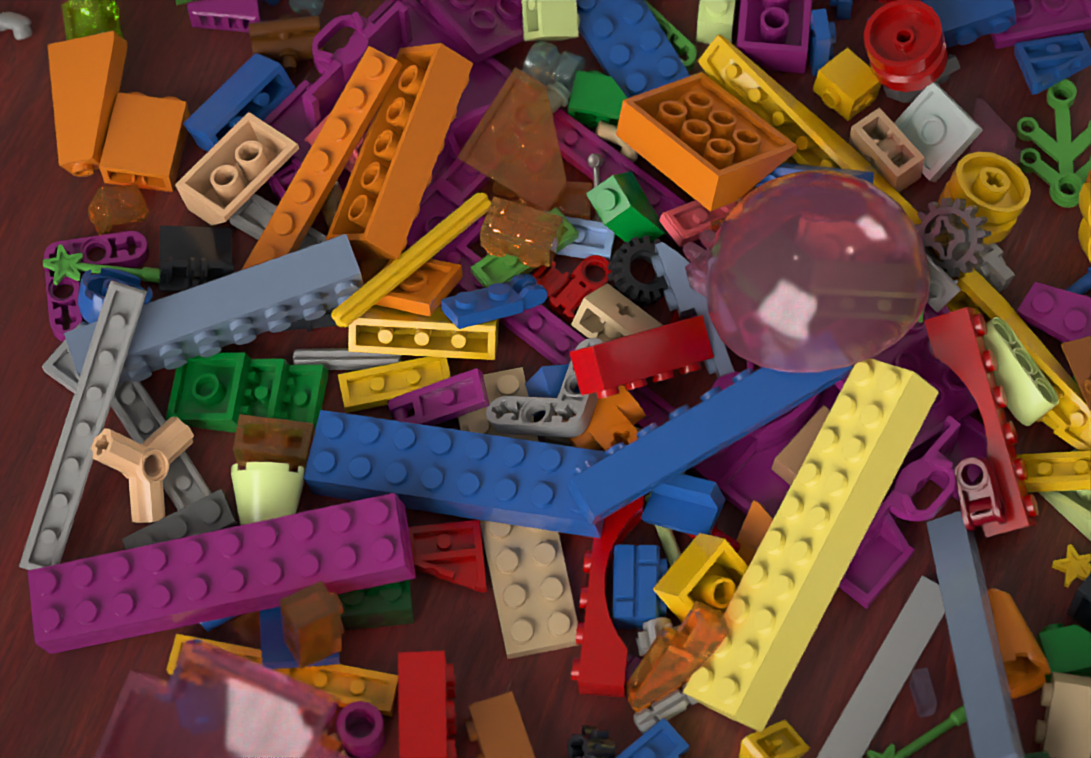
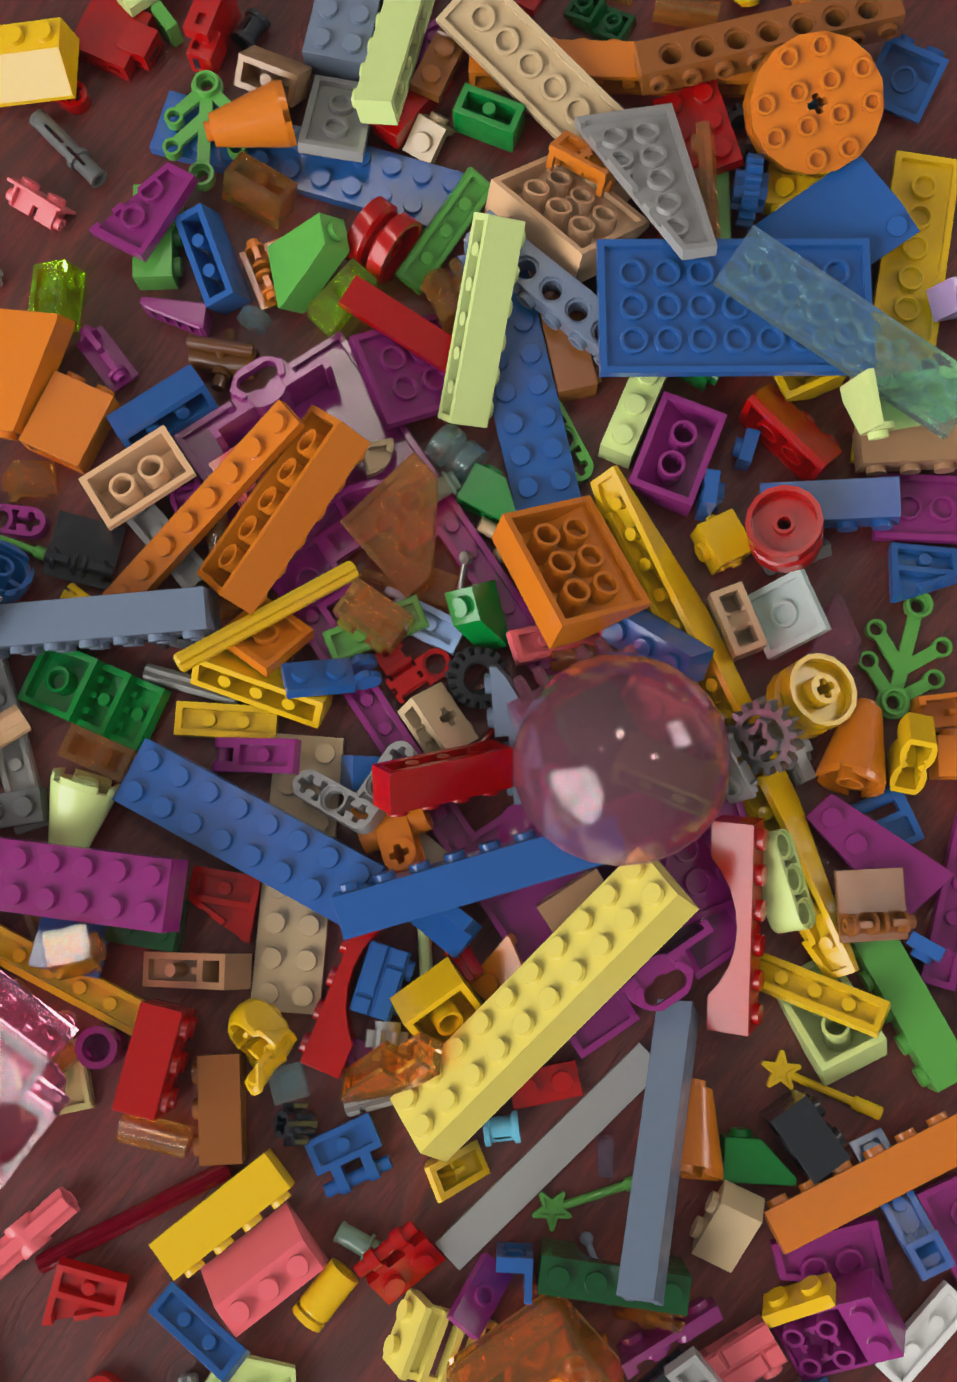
camera: 20 degrees right, 15 degrees up
(161, 73) = (106, 357): none -> magenta hinge
(442, 627) = (197, 970): none -> medium nougat slope
(477, 90) = (378, 456): none -> tan tile
(529, 671) = (263, 1037): none -> yellow head
(569, 714) = (289, 1083): none -> clear light blue plate
(807, 697) = (502, 1129): none -> medium azure bush
(839, 645) = (549, 1084): none -> red plate
(980, 496) = (711, 1002): dark red piece -> none
(1047, 243) = (856, 754): none -> orange cone

